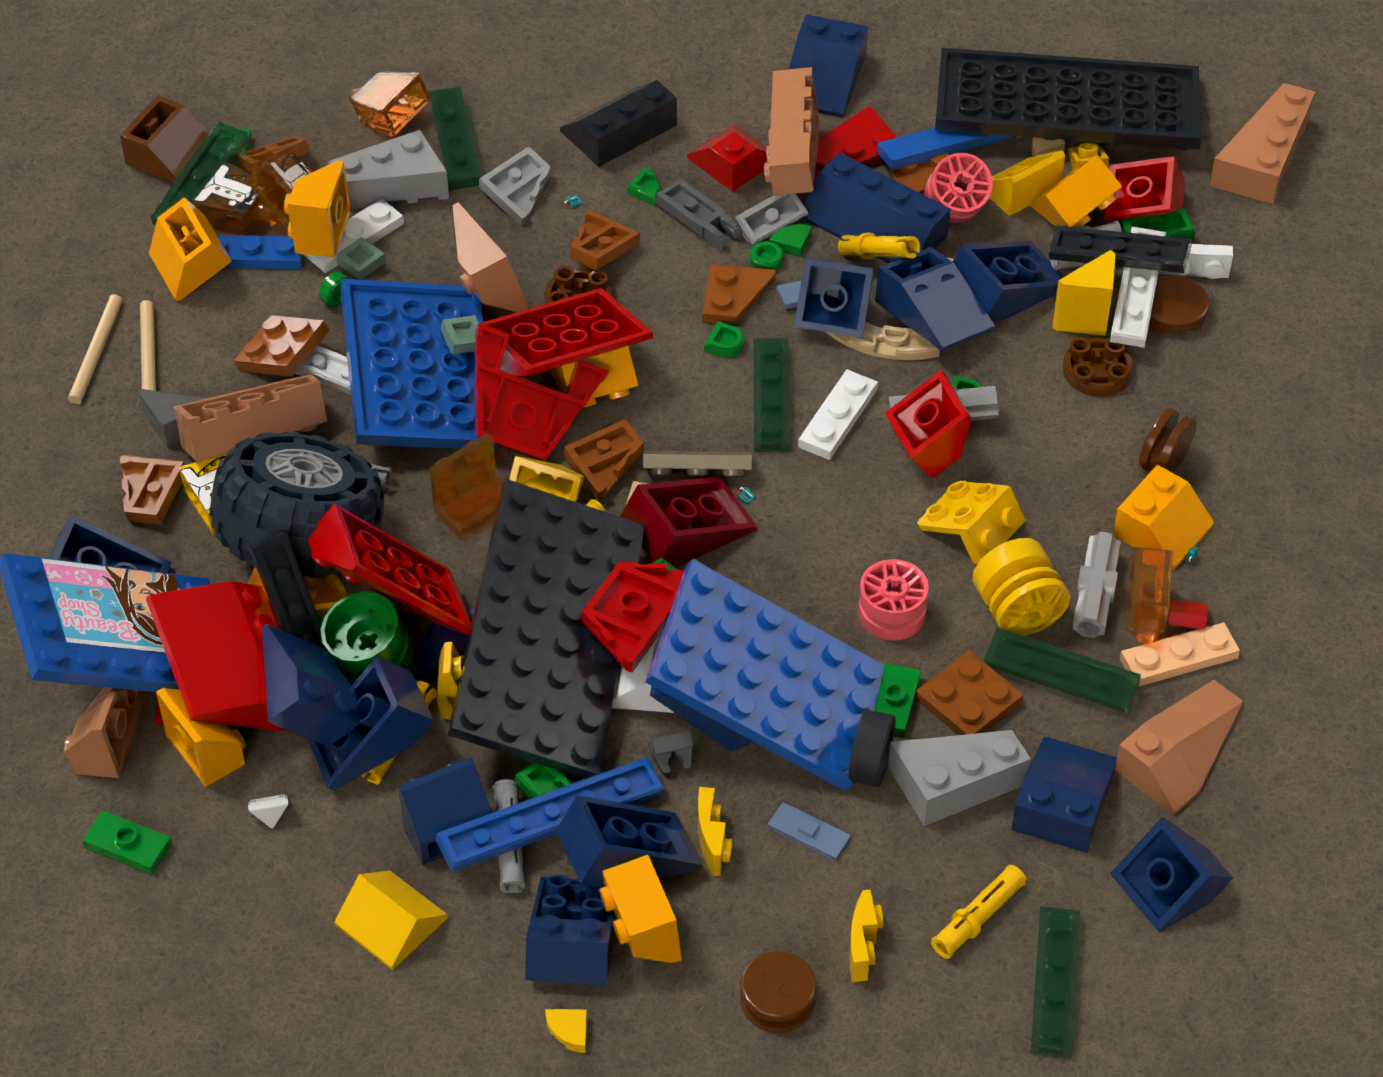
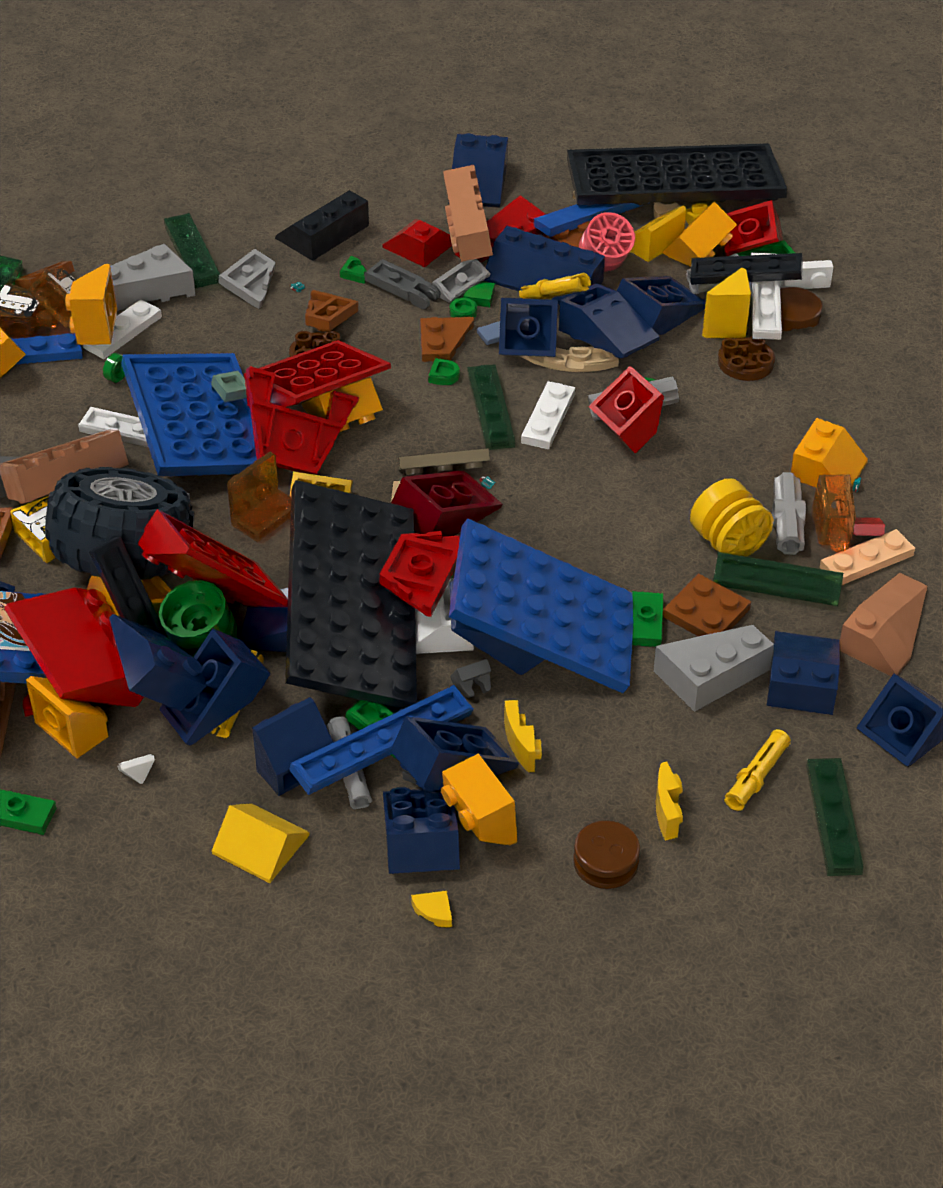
camera: 10 degrees left, 5 degrees down
(281, 345) = (78, 413): dark orange plate -> none
(360, 258) = (132, 342): sand green plate -> none
(389, 100) = (133, 227): clear orange torso -> none
(448, 678) = (275, 643): yellow slope -> none
(485, 265) = (240, 333): nougat wedge -> none
(605, 456) = (366, 465): dark orange wing -> none
(809, 831) = (600, 727): sand blue piece -> none
(871, 748) = (640, 653): black tyre -> none
(893, 599) = (628, 542): coral wheel -> none
(978, 512) = (683, 470): yellow bracket -> none
(1167, 441) = (818, 403): reddish brown head -> none
(1263, 149) = (833, 194): nougat wedge -> none

